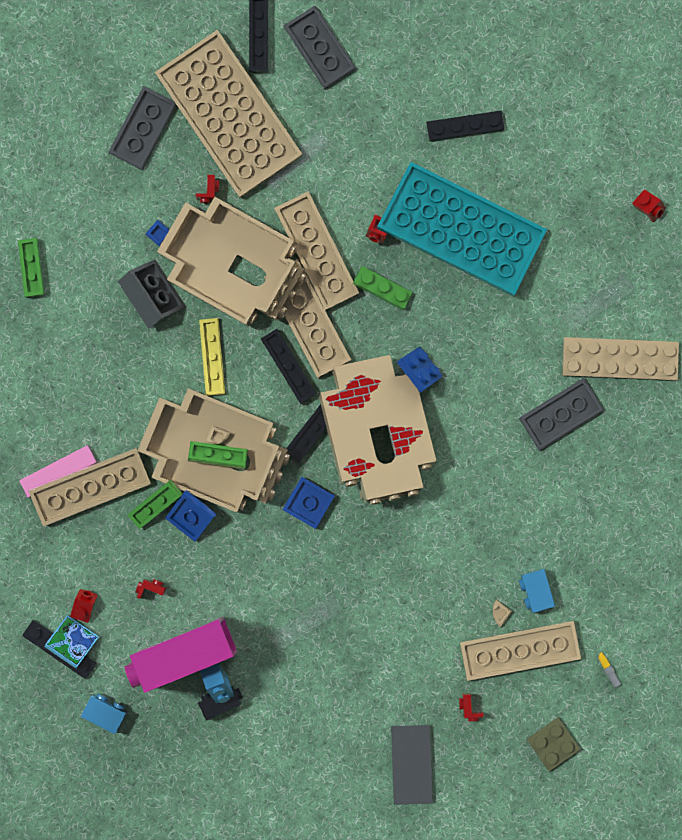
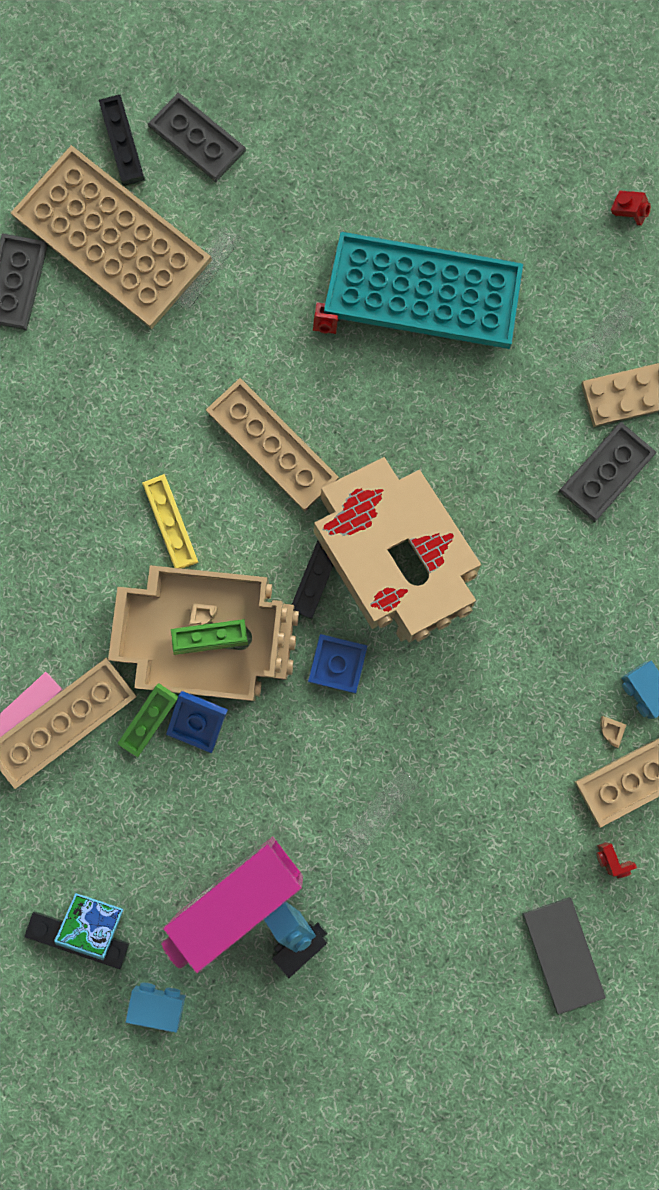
camera: 20 degrees left, 5 degrees down
(83, 605) = (92, 874): red bracket -> none
(151, 293) = (74, 467): dark grey slope -> none
(154, 586) = (176, 823): red bracket -> none
(157, 232) = (65, 396): blue tile -> none
(206, 248) = (127, 392): tan panel -> none
(212, 187) = (115, 324): red bracket -> none
(288, 366) = (265, 507): black plate -> none
(316, 251) = (260, 363): tan plate -> none
(382, 288) = (350, 384): bright green plate -> none
(420, 369) = (425, 463): blue plate -> none
(465, 125) = (391, 177): black plate -> none

